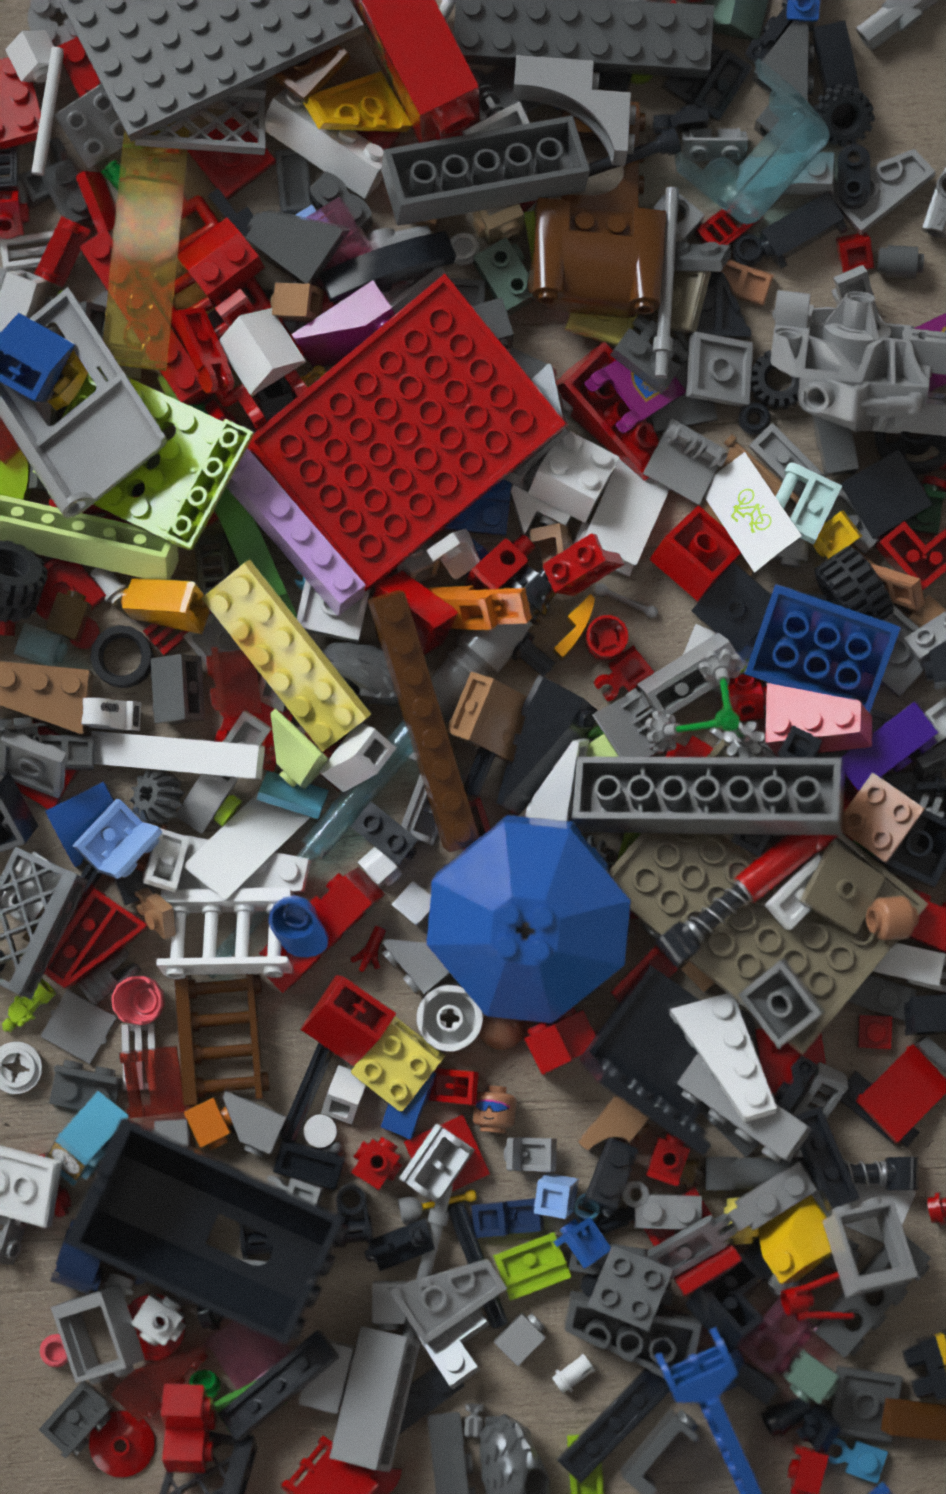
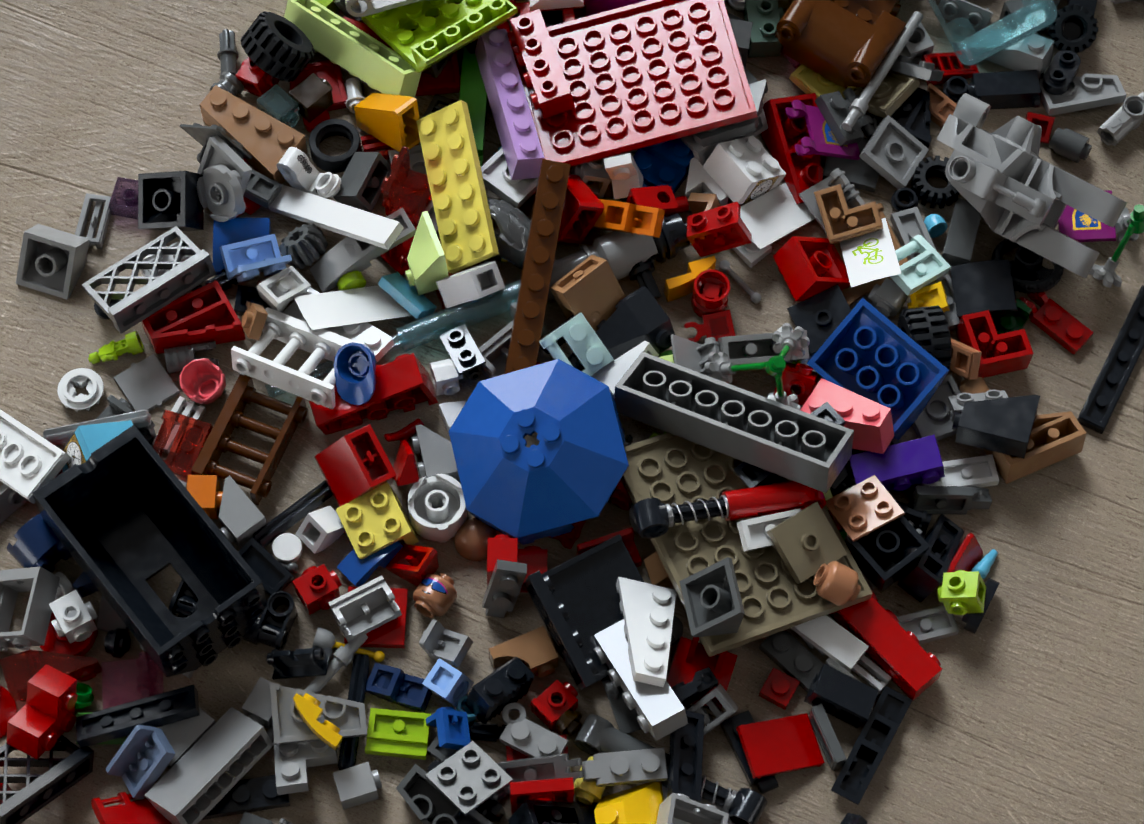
camera: 20 degrees right, 20 degrees down
(43, 788) = (230, 201): none -> light grey plate
(61, 1106) = (63, 433): none -> light grey axle
(146, 715) = (328, 185): none -> white plate
(303, 468) = (542, 64): none -> brick
(308, 1424) = (141, 759): none -> sand blue bracket
(395, 993) = (405, 465): none -> red slope
(447, 1303) = (310, 712): none -> yellow slope
(511, 774) = (583, 343): none -> light aqua plate
(564, 1077) = (504, 587): none -> dark grey hinge
(703, 487) = (842, 222): none -> medium nougat brick
(798, 432) = (935, 225): none -> medium azure hinge

